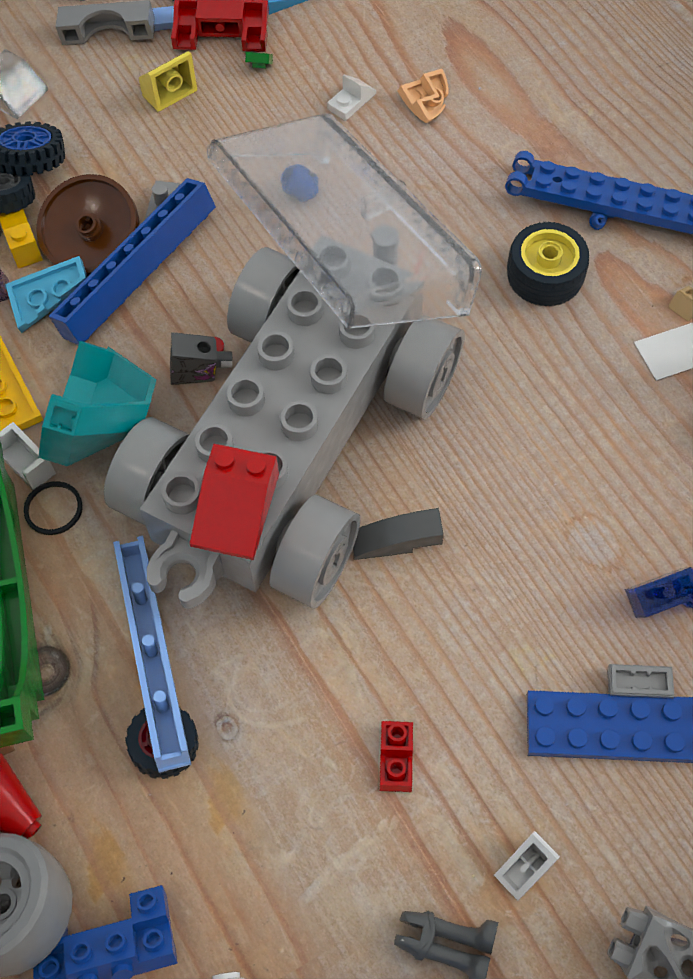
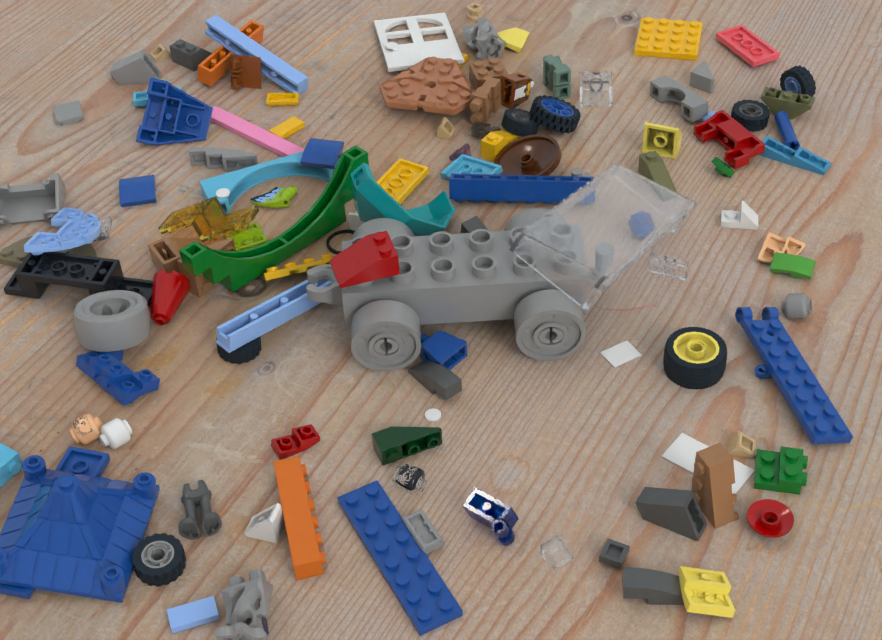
camera: 60 degrees right, 20 degrees down
(75, 583) = (290, 268): none -> yellow wing
(216, 120) = (654, 168): none -> olive slope
(361, 495) = (443, 349): none -> blue torso
(448, 570) = (433, 415): none -> white piece
(464, 98) = (795, 265): none -> bright green slope
(479, 327) = (620, 353): none -> white sticker
(482, 634) = (400, 442): none -> dark green slope
(523, 811) = (298, 518): none -> orange brick
(529, 133) = (797, 306): none -> light grey head
(550, 653) = (409, 479): none -> head

